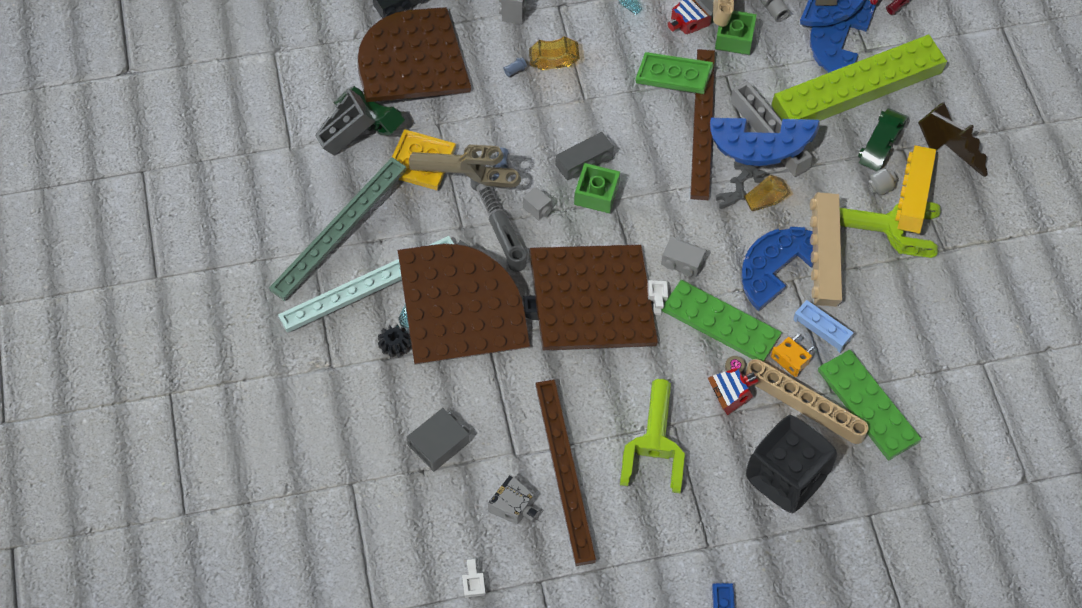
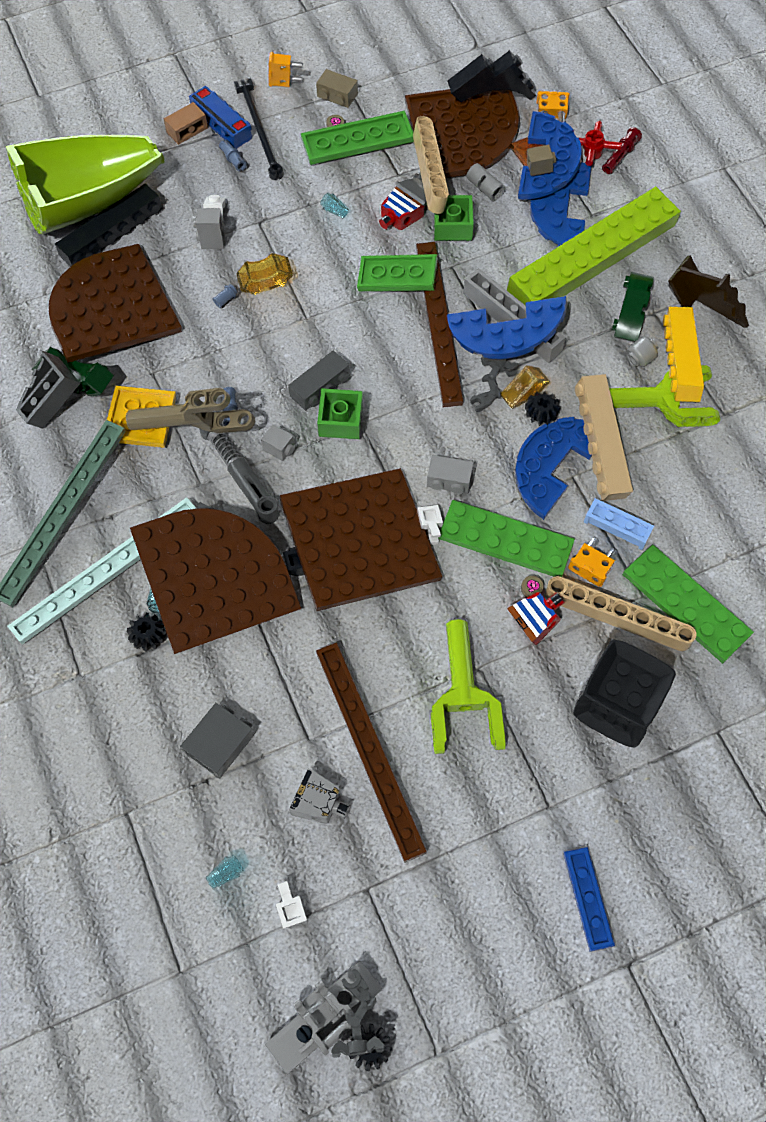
camera: 10 degrees left, 5 degrees up
(425, 543) = (225, 871): none -> clear light blue cone
(778, 215) = (542, 408): none -> black gear

